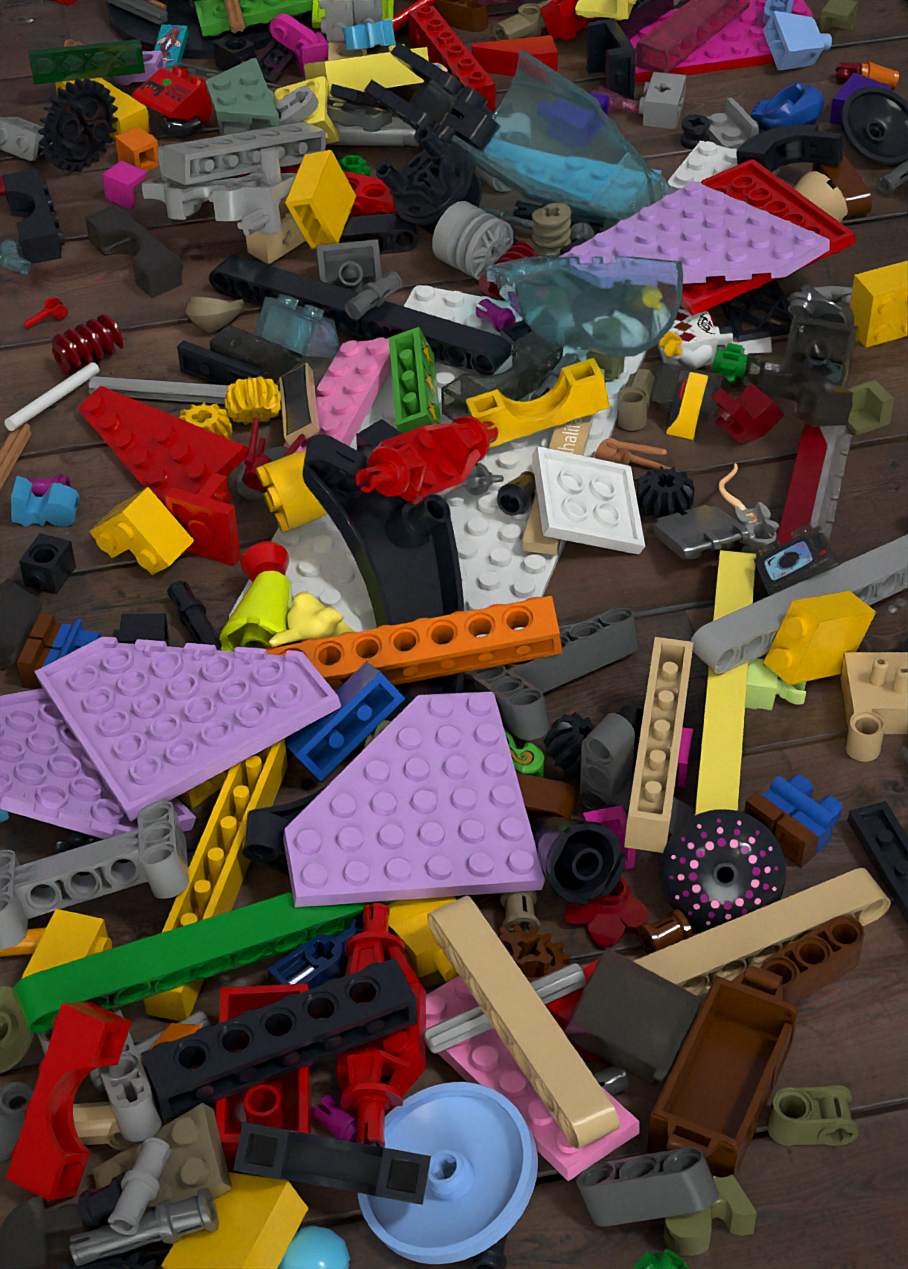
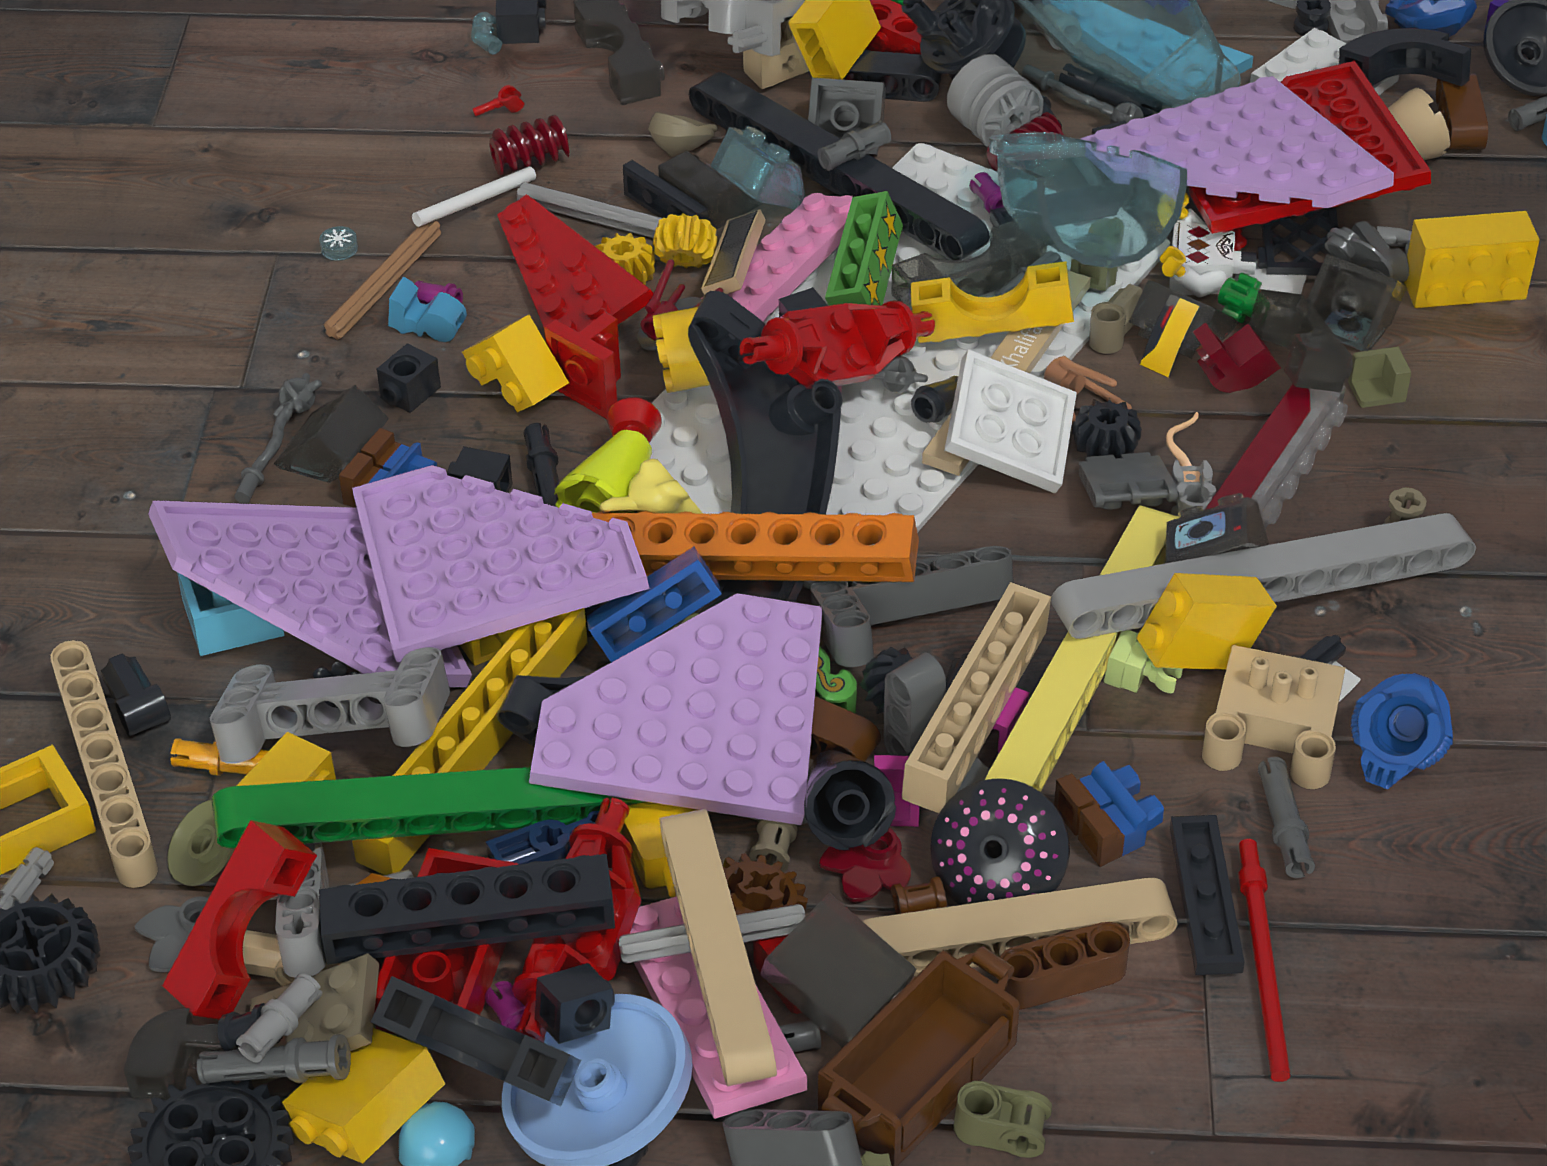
camera: 15 degrees right, 0 degrees up
(407, 1104) = (573, 1003): none -> black brick
(551, 229) = (1087, 105): dark tan piece -> none

